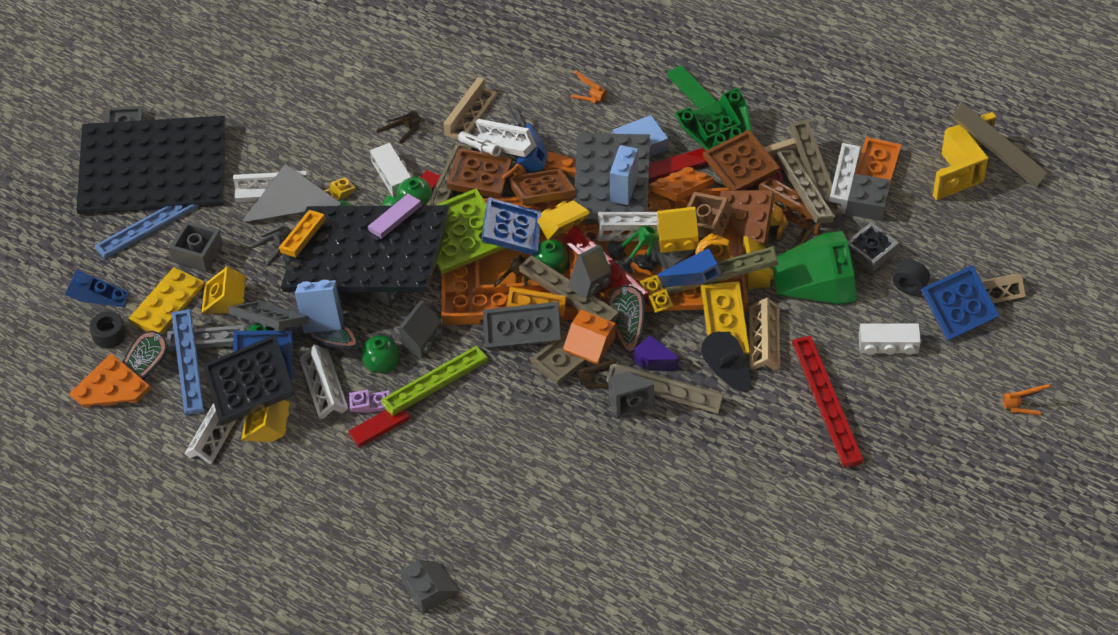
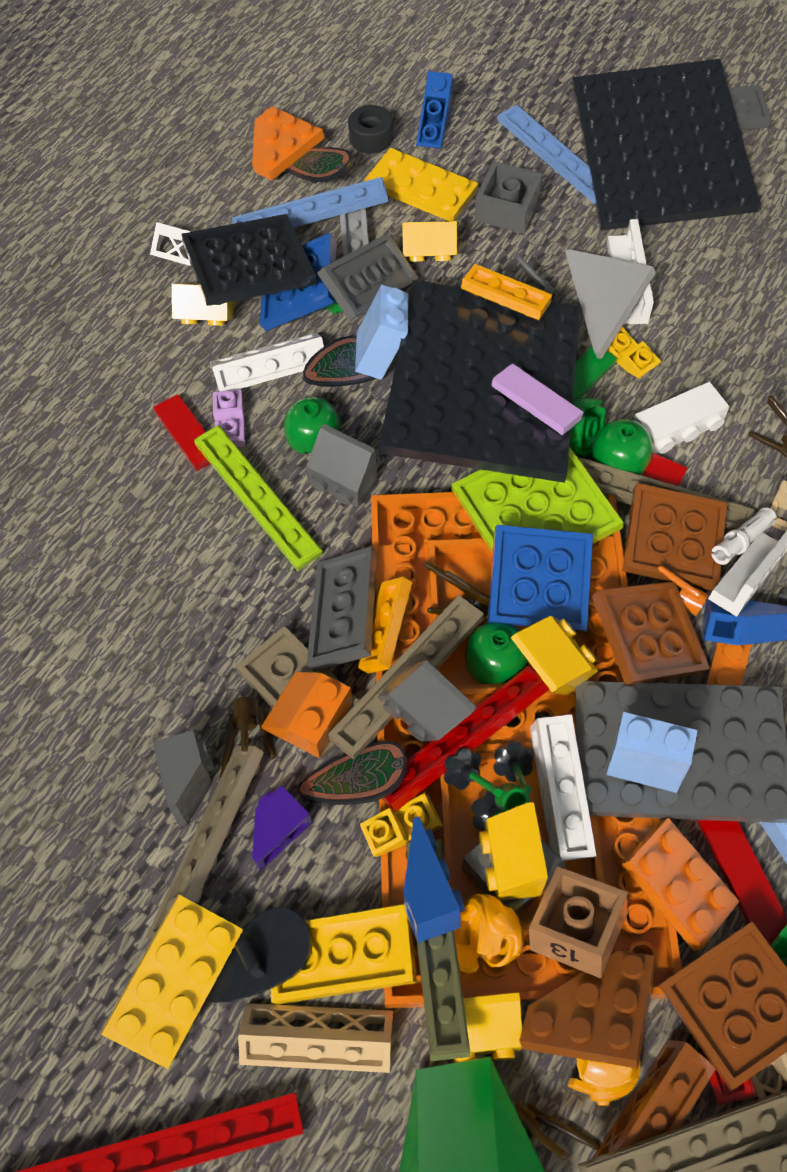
camera: 90 degrees right, 10 degrees up
(741, 391) = (172, 981): none -> yellow plate

